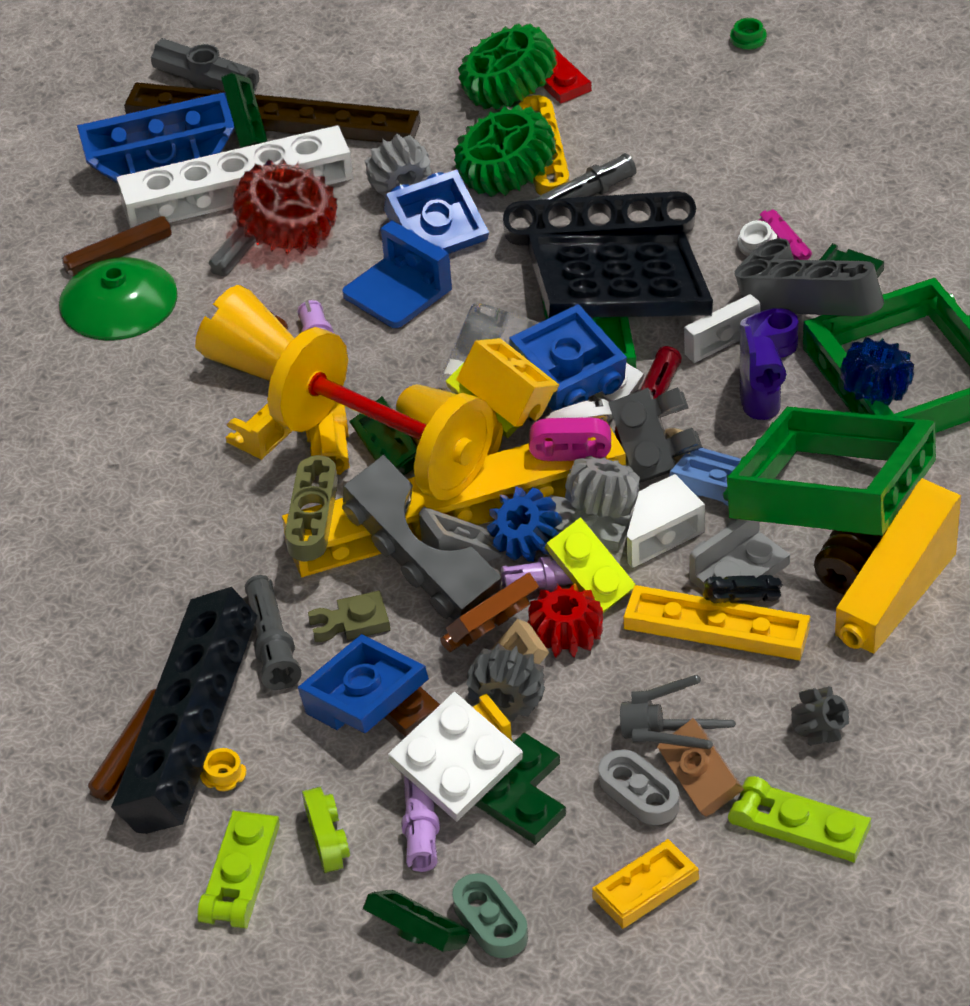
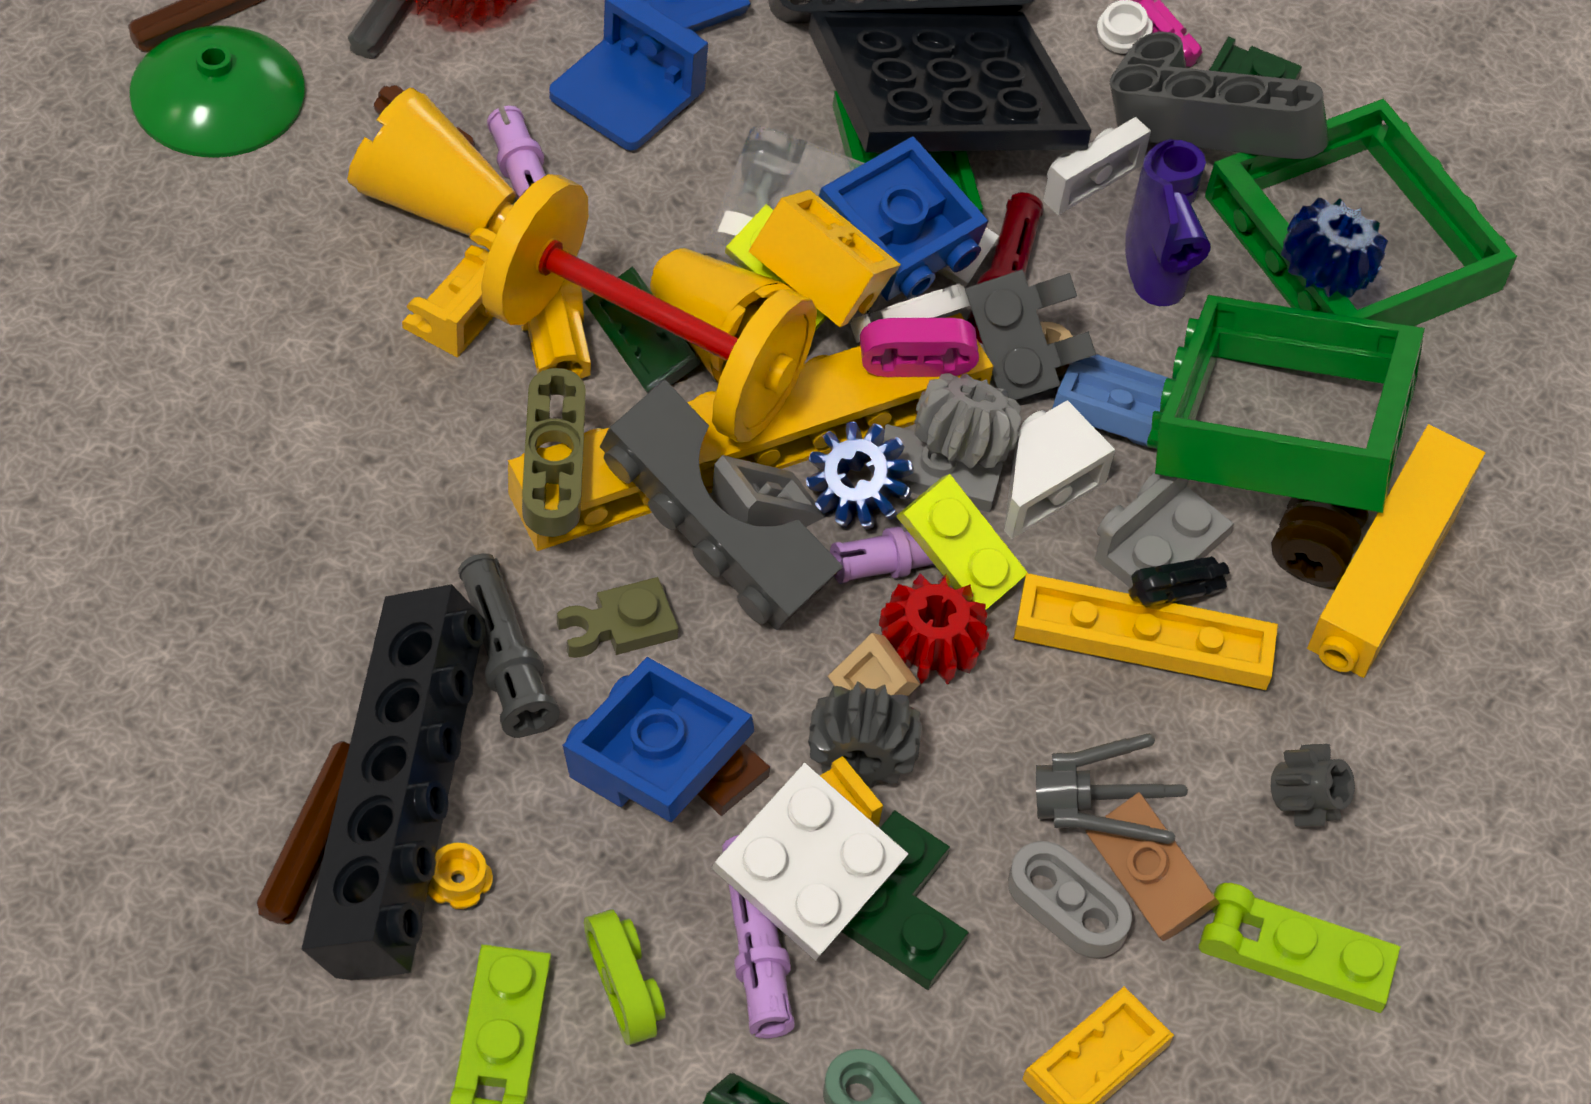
camera: 15 degrees left, 10 degrees up
(492, 611) = (830, 617): dark orange plate -> none

